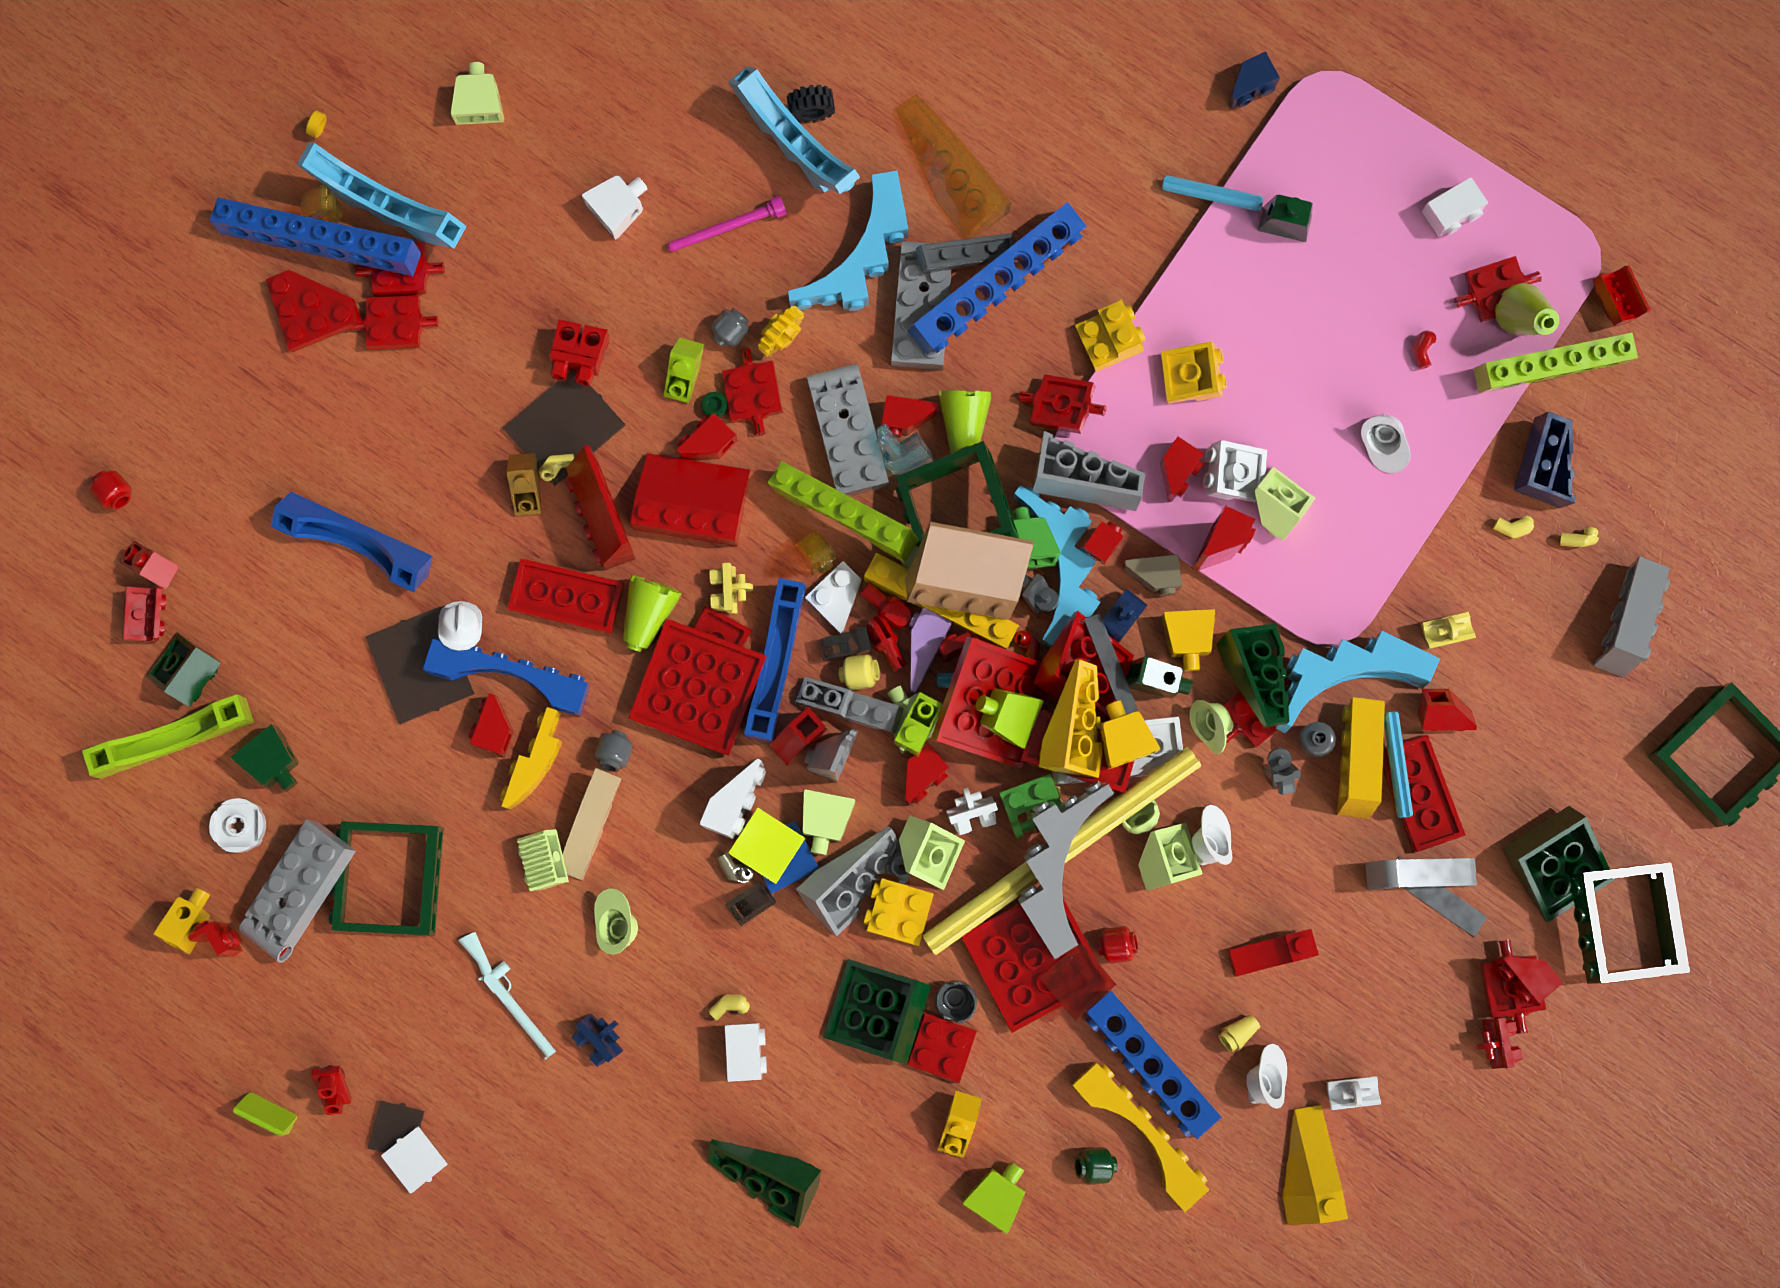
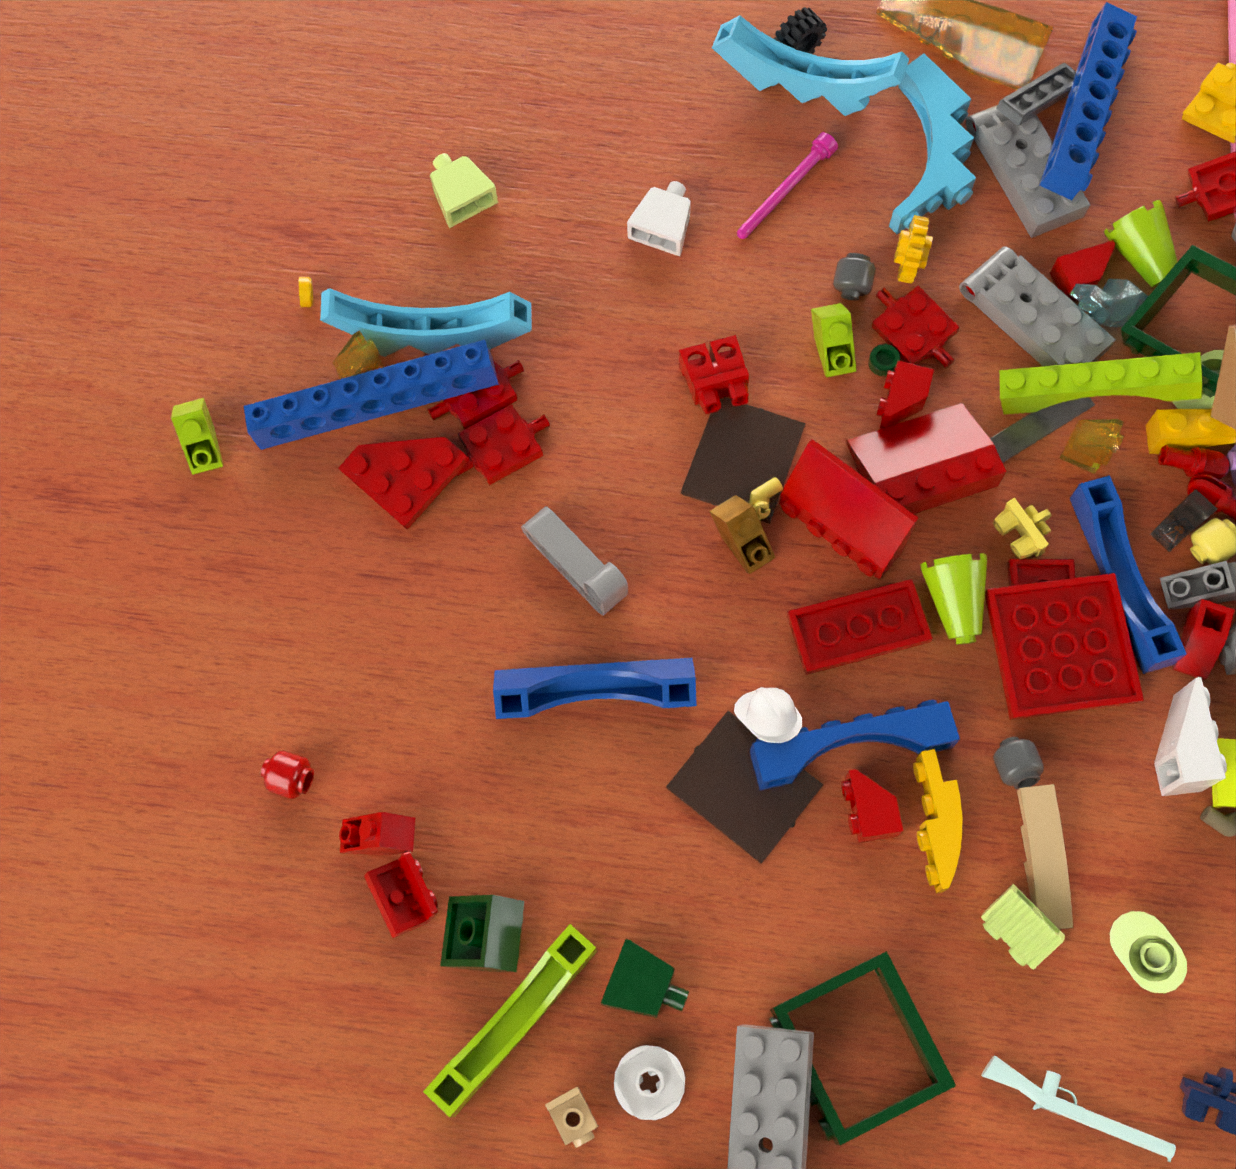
camera: 25 degrees left, 10 degrees down
(177, 199) = (197, 435): none -> lime slope
(184, 819) = (572, 1102): none -> tan brick
(398, 462) = (598, 583): none -> light grey beam
(784, 517) = (1037, 425): none -> flat silver sticker
(836, 596) = (1137, 481): white wing -> none

